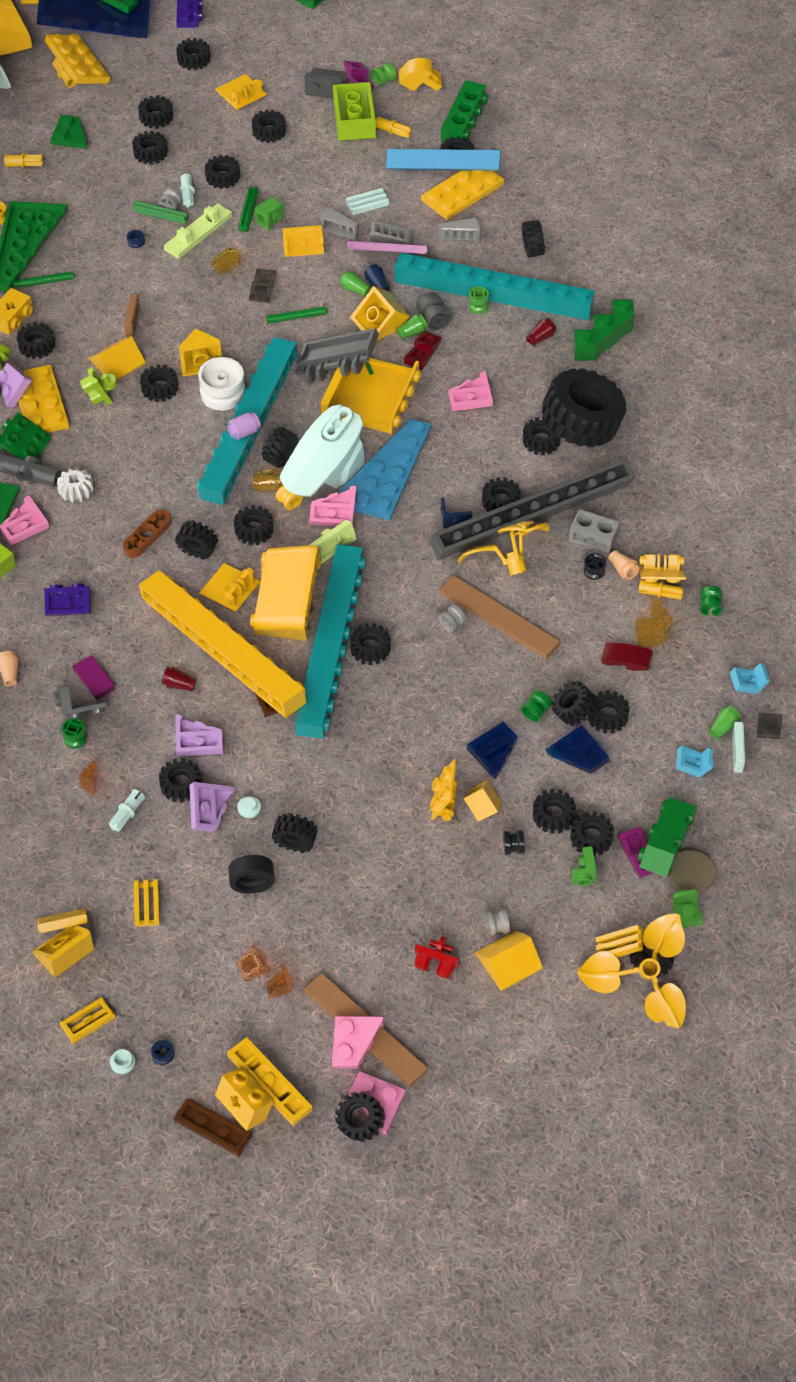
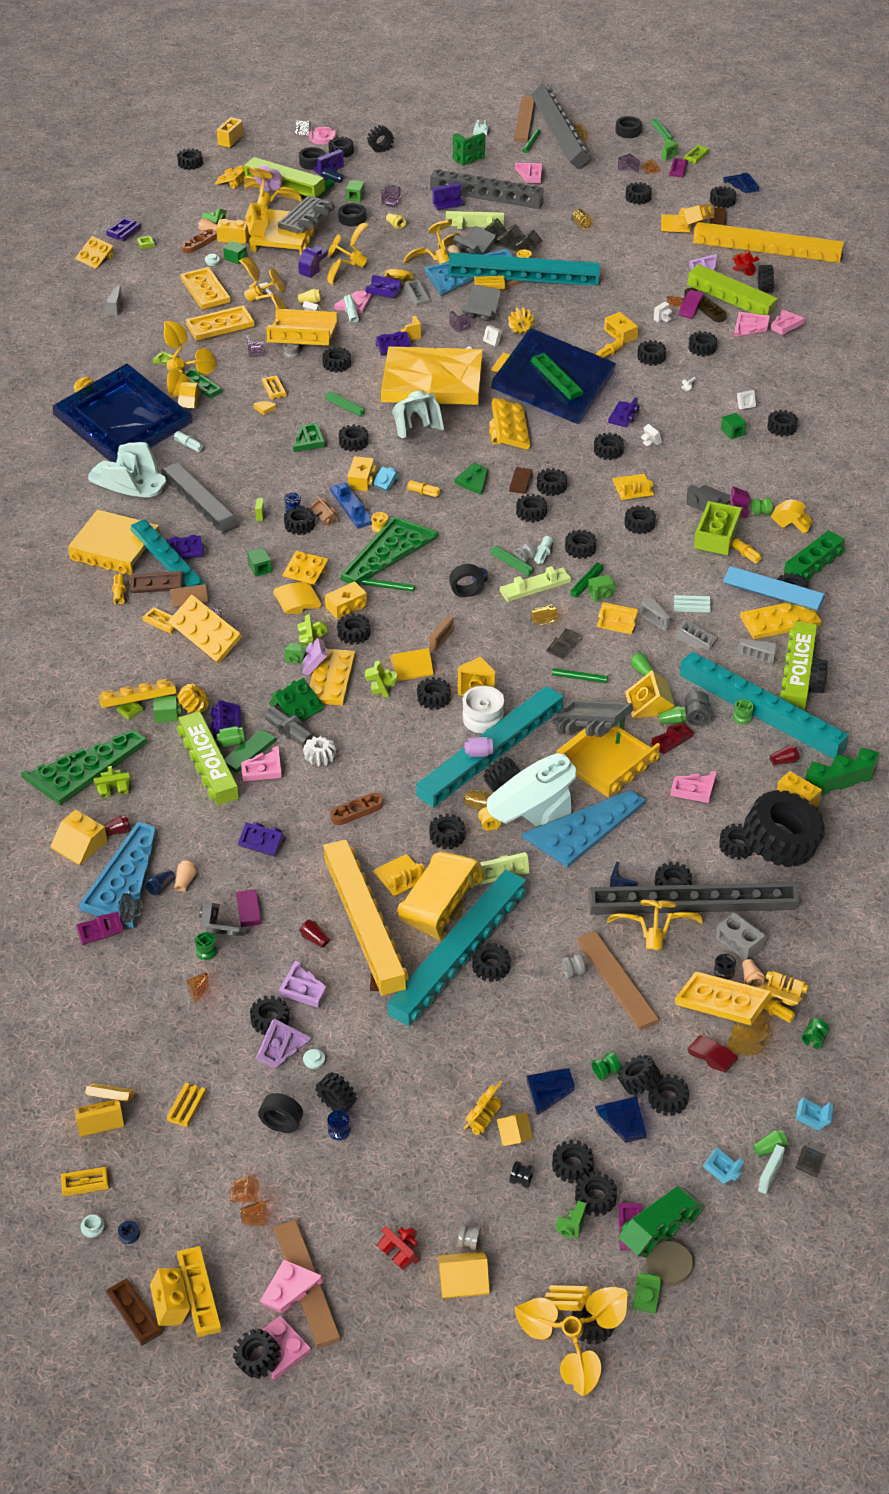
camera: 25 degrees right, 10 degrees down
(120, 119) = (520, 480): none -> reddish brown tile
(121, 242) = (463, 571): none -> black tyre
(126, 810) = (212, 1023): light aqua axle -> none
(196, 540) = (390, 826): black tyre -> none
(232, 29) = (651, 436): none -> white tile
(312, 863) = (338, 1125): none -> clear blue wheel
(334, 508) = (522, 840): bright pink wing -> none
(376, 277) = (664, 666): dark blue cone -> none
(388, 247) = (686, 644): tile -> none
(507, 231) = (800, 663): none -> lime brick
(570, 359) = (798, 785): none -> yellow brick
(612, 598) = (723, 998): none -> yellow plate

